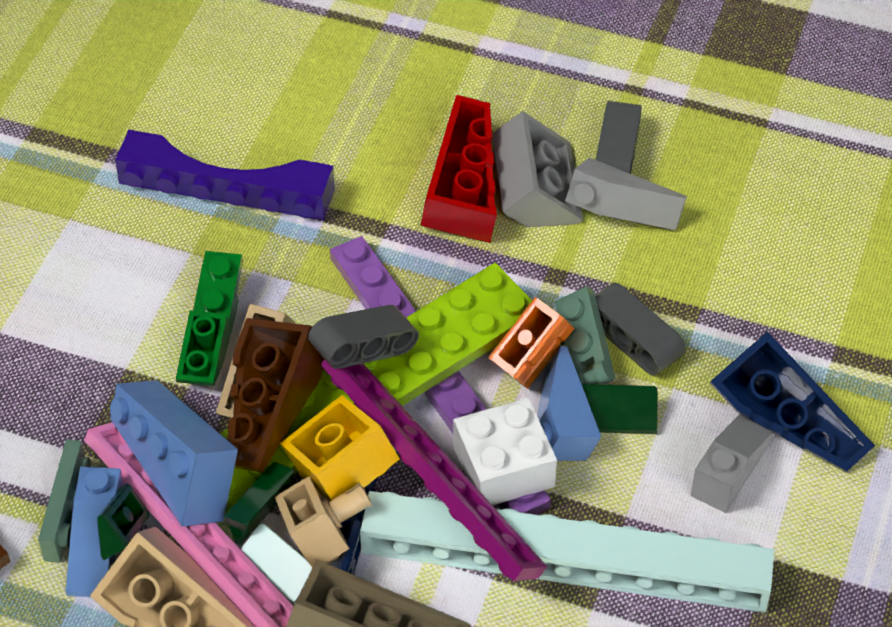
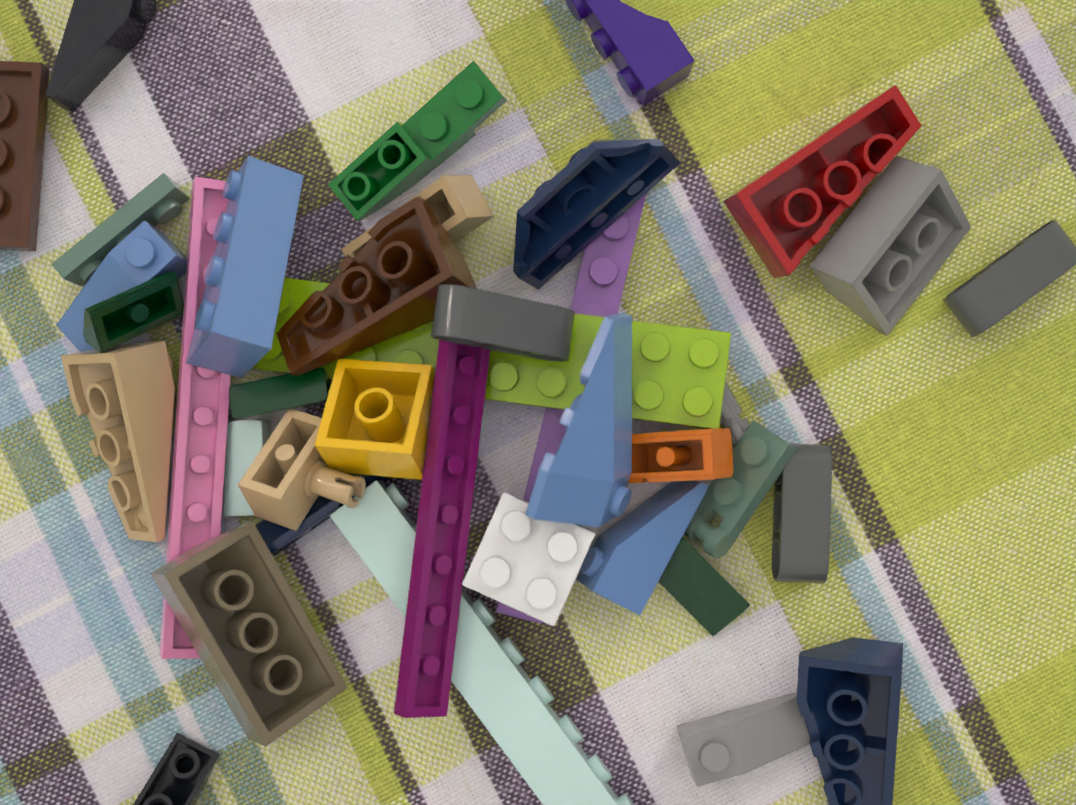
camera: 45 degrees right, 35 degrees up
(343, 257) = (584, 202): none -> dark blue wedge
(484, 364) = (594, 462): none -> medium blue wedge
(624, 196) = (945, 350): light grey slope -> none

